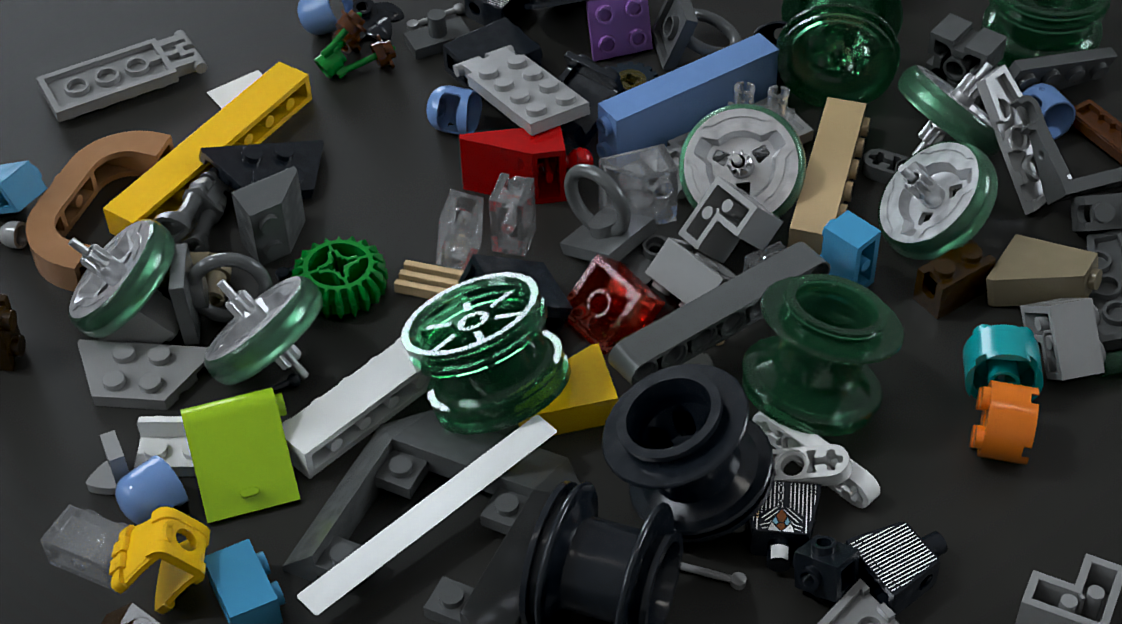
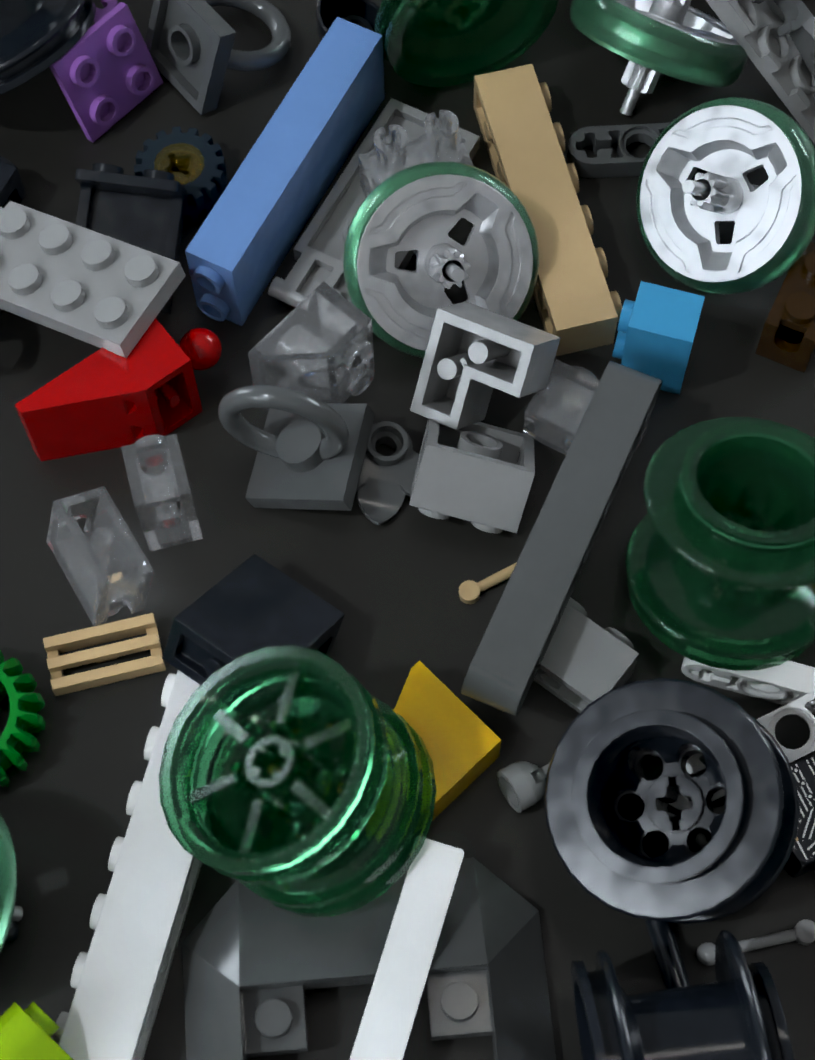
camera: 30 degrees left, 20 degrees up
(611, 303) = (385, 573): clear red slope -> none

